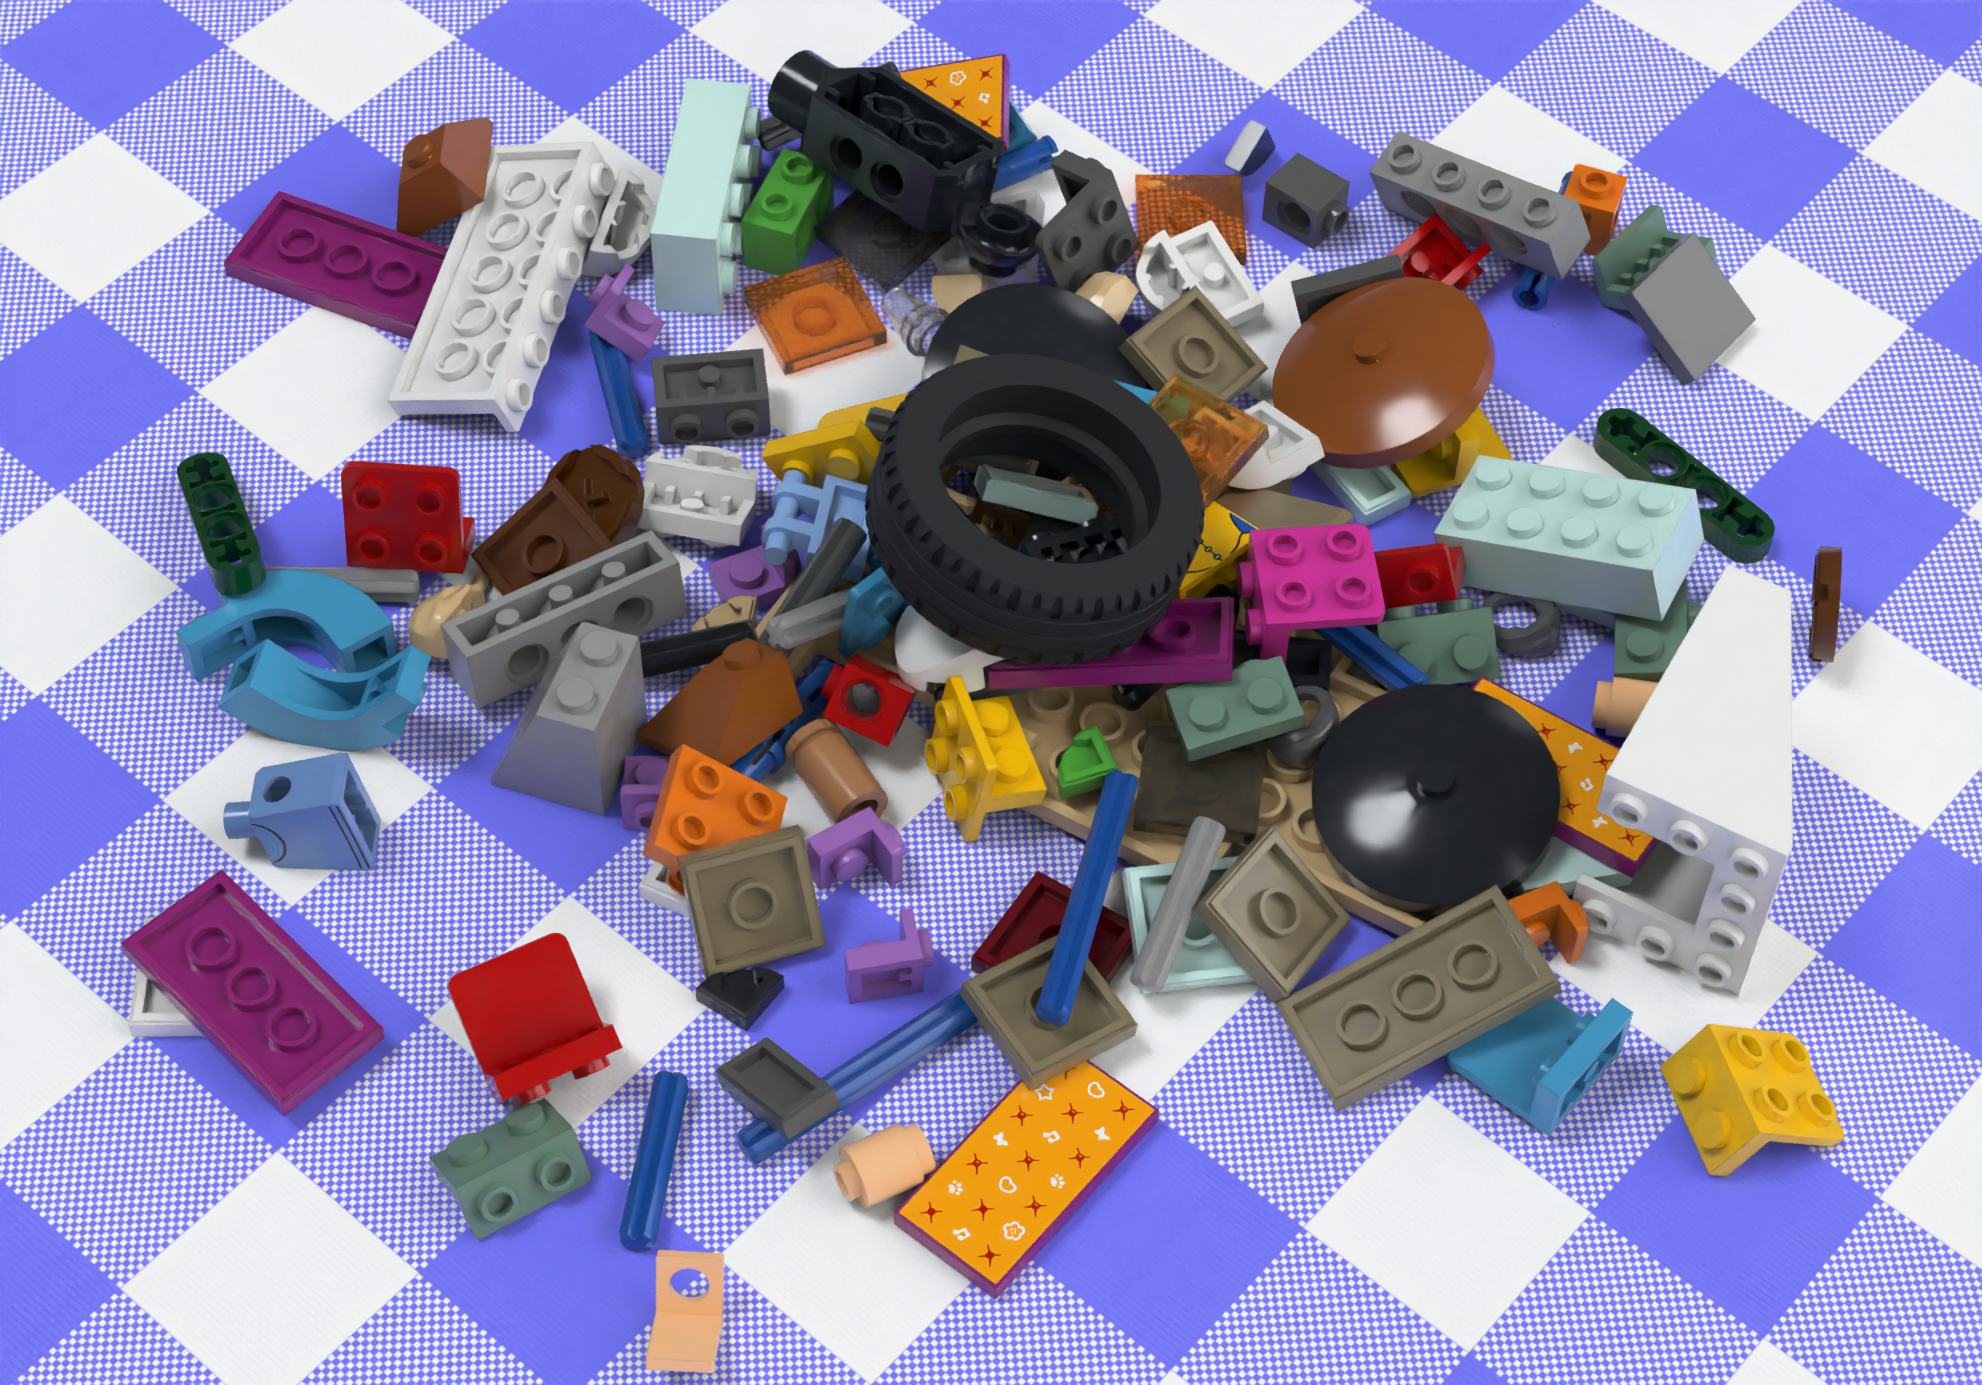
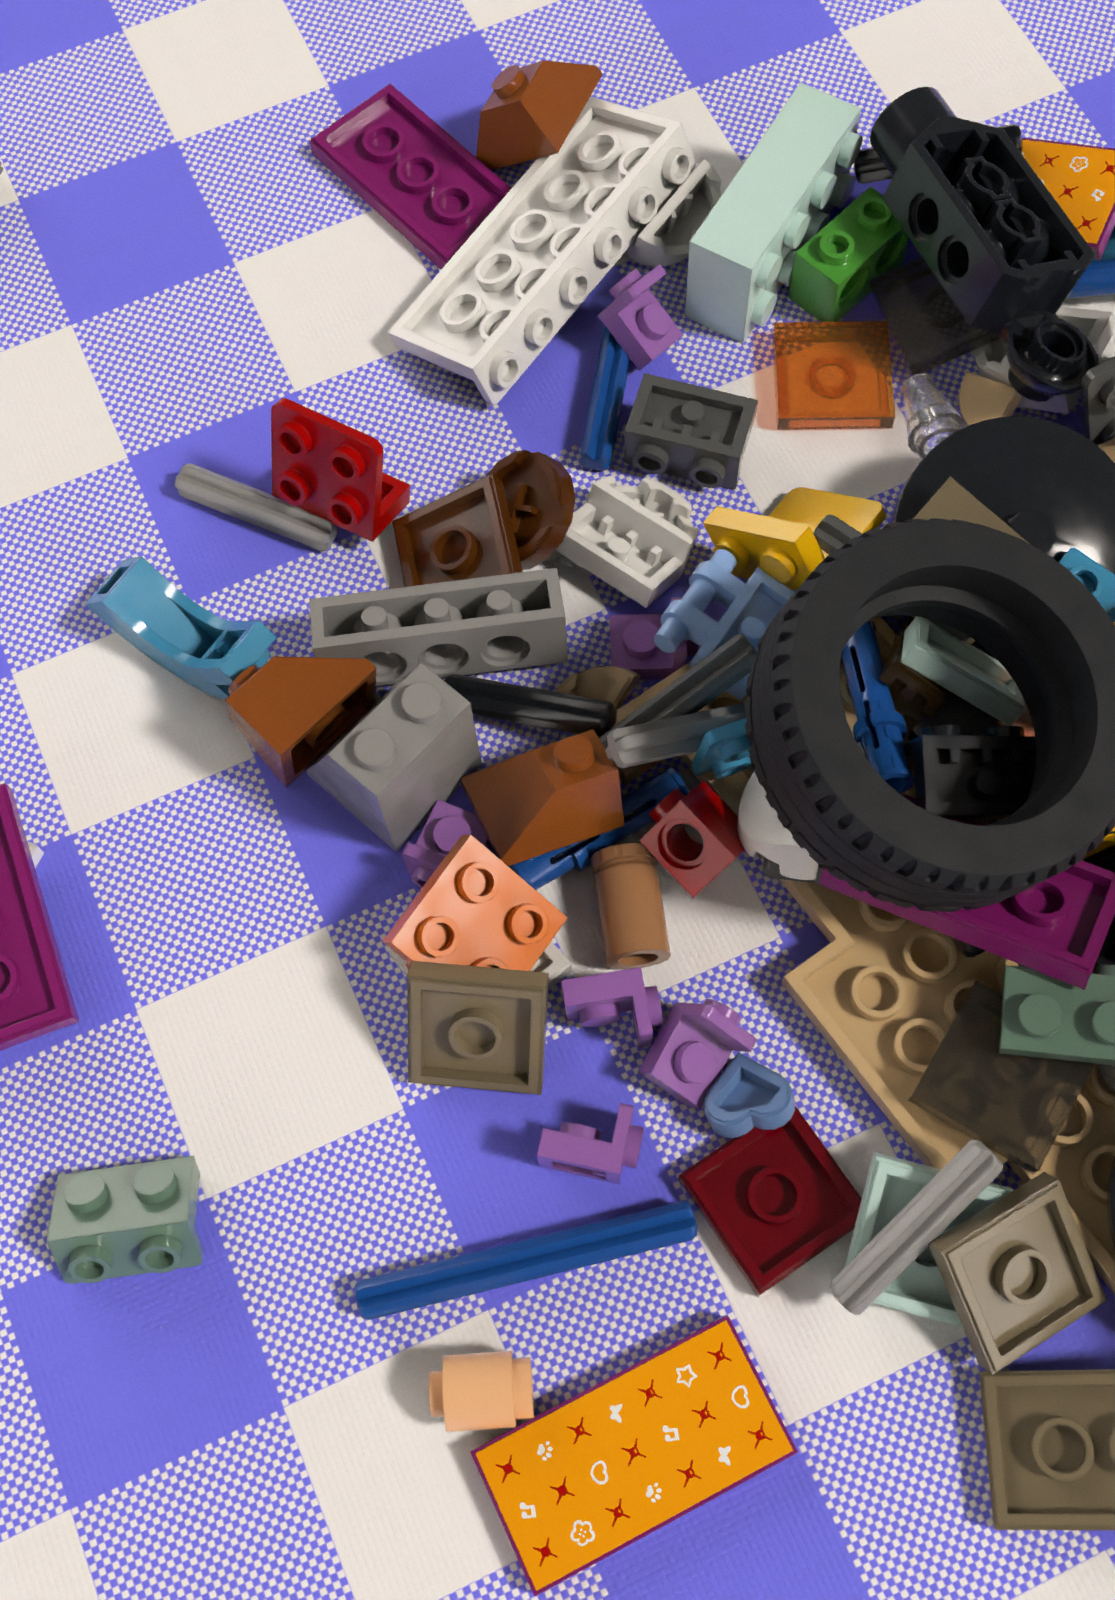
camera: 30 degrees right, 15 degrees up
(218, 513) = (164, 409): dark green beam -> none
(291, 610) = (192, 519): dark azure arch -> none
(309, 815) = (92, 743): medium blue torso -> none
(444, 605) = (338, 576): tan piece -> none
(473, 713) = (299, 707): none -> dark orange slope
(531, 1019) = (209, 1077): red bracket -> none
(654, 1161) = (265, 1274): blue axle -> none
(686, 1328) = (205, 1493): light nougat bracket -> none
(741, 995) = (435, 1113): black tile -> none
(777, 1088) = (414, 1255): dark grey tile -> none
(941, 858) = (694, 1049): none -> medium lavender bracket
(980, 758) = (784, 953): yellow bracket -> none
(1001, 880) = (748, 1098): none -> medium blue tile
(1006, 1005) = (728, 1283): dark tan tile -> none
(1084, 764) = (889, 1002): bright green tile -> none
(1086, 899) = (819, 1177): blue axle -> none

